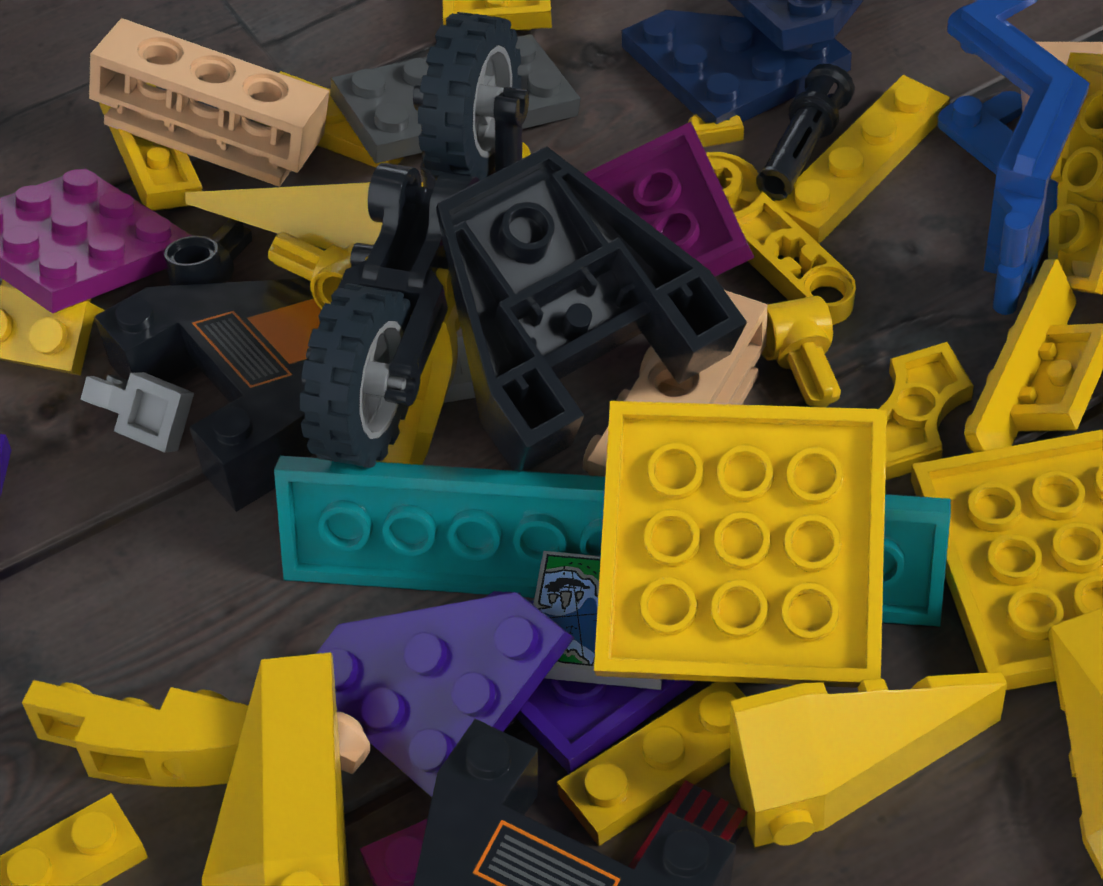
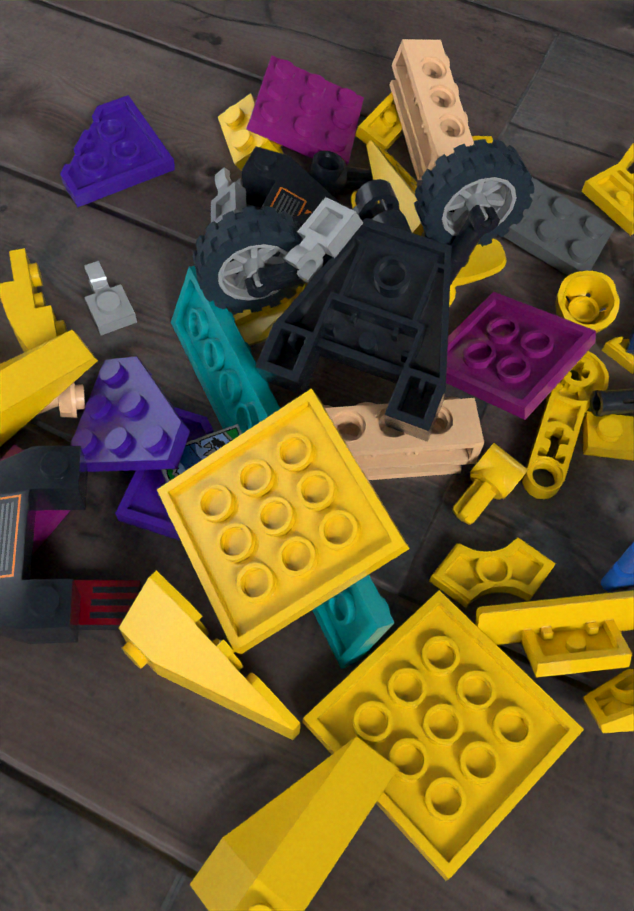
camera: 50 degrees right, 10 degrees up
(198, 640) = (107, 305): none -> light grey plate
(420, 255) = (322, 233): none -> light grey plate
(624, 130) = (586, 309): none -> yellow helmet
(652, 764) = (140, 555): yellow plate -> none

